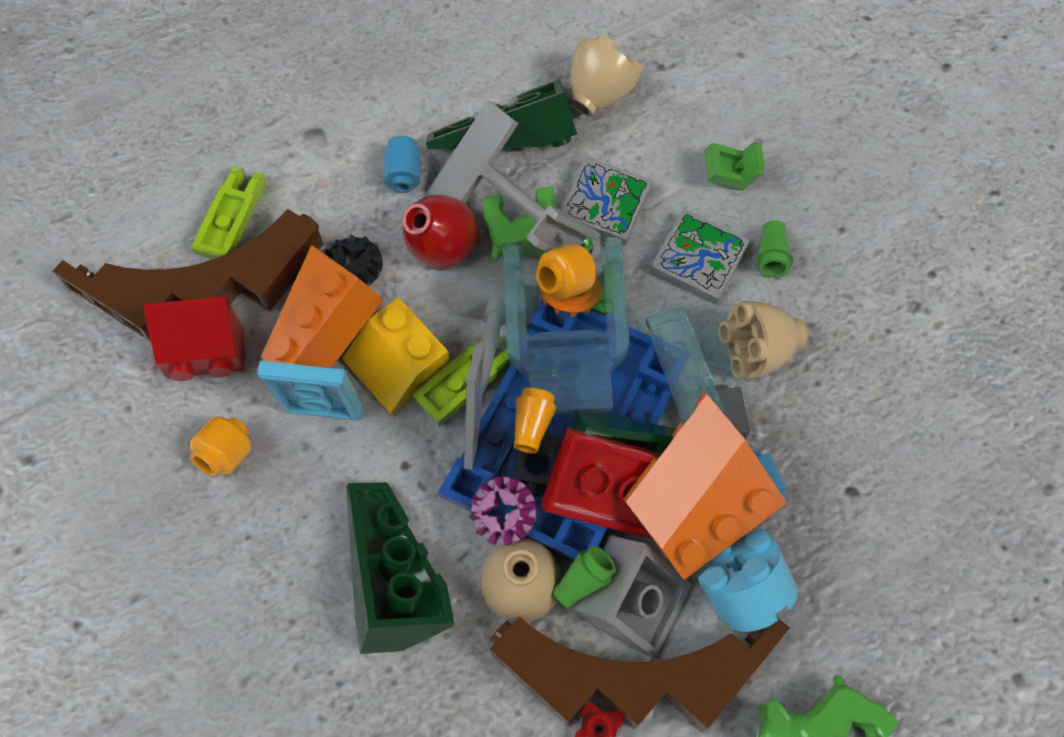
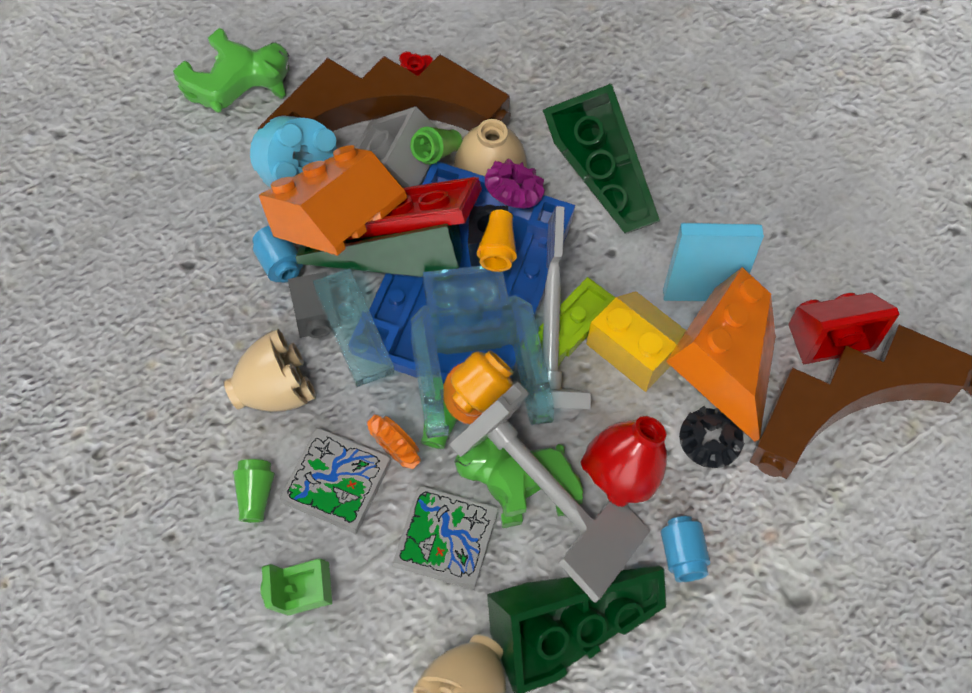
camera: 170 degrees right, 5 degrees down
(220, 446) = (785, 240): light orange head -> none
(228, 214) = (859, 472): lime hinge -> none
(647, 267) = (394, 441): none -> orange gear

